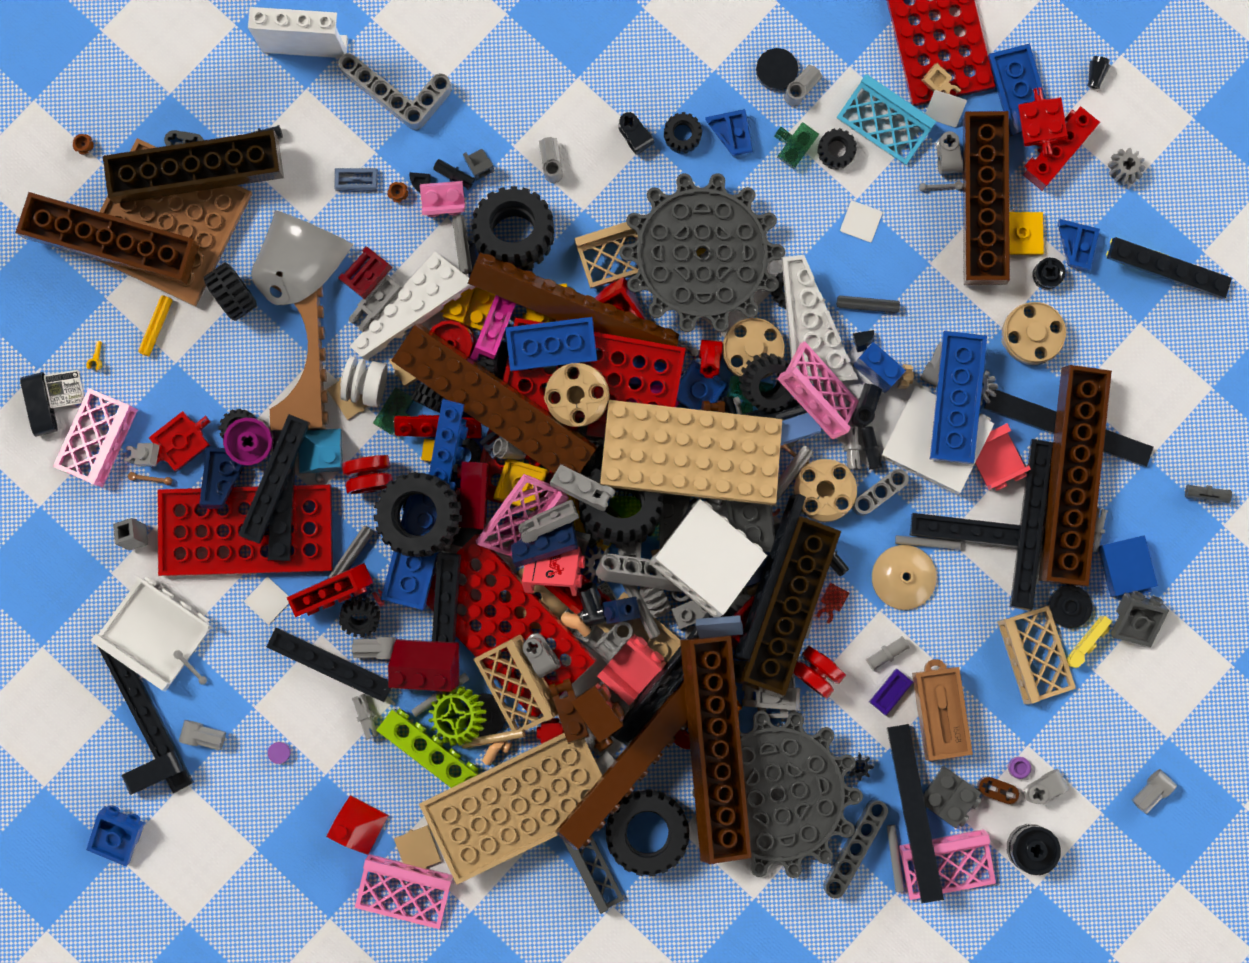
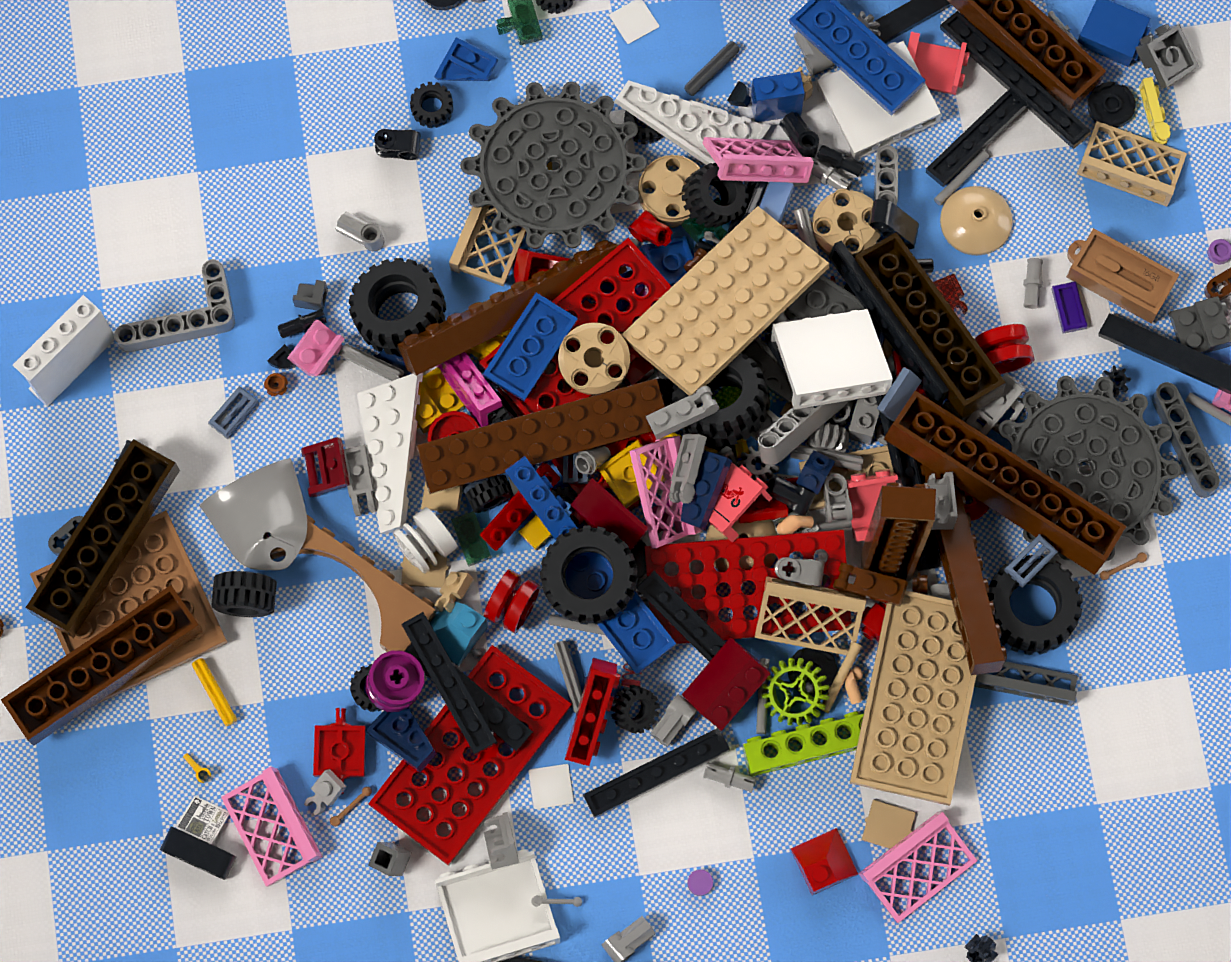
camera: 50 degrees left, 10 degrees down
(198, 599) = (500, 842): none -> light grey hinge
(348, 427) = (454, 587): none -> tan plate
(653, 808) = (1016, 576): none -> sand blue tile
(664, 715) = (945, 501): none -> light grey hinge
(745, 880) = (1141, 558): none -> medium nougat hinge
(849, 523) = (888, 219): none -> black beam

